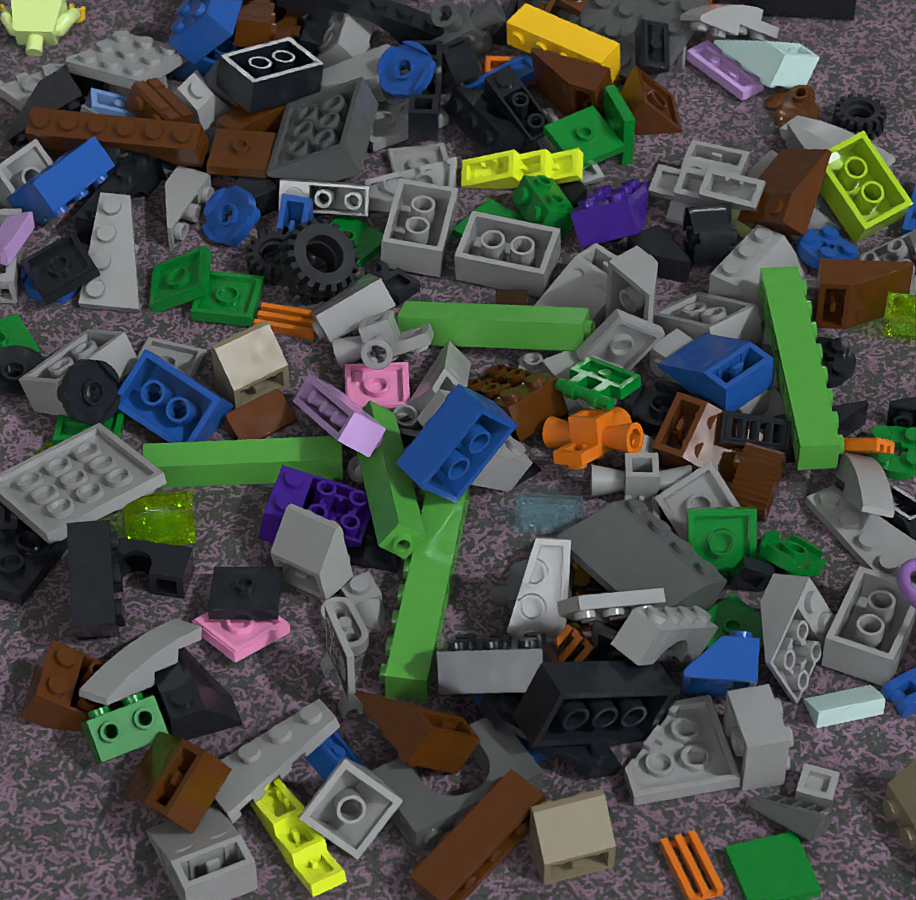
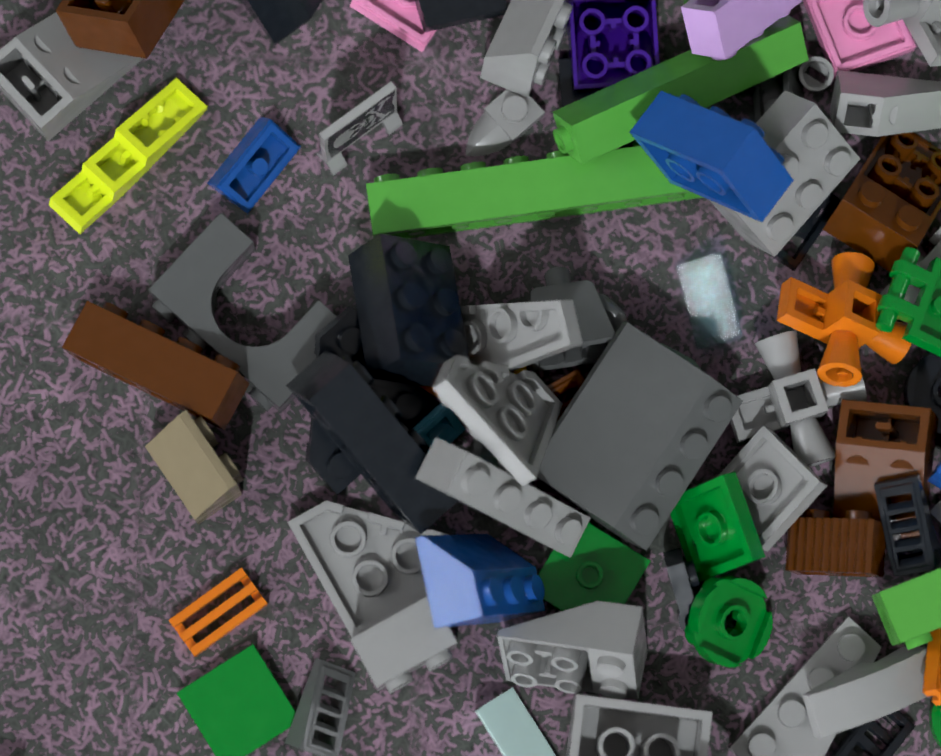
camera: 65 degrees right, 35 degrees up
(272, 756) = (214, 90): light grey wing -> none
(351, 623) = (447, 112): light grey plate -> none
(351, 807) = (161, 208): light grey slope -> none
(421, 733) = (299, 243): reddish brown slope -> none
(817, 785) = (374, 731): light grey plate -> none

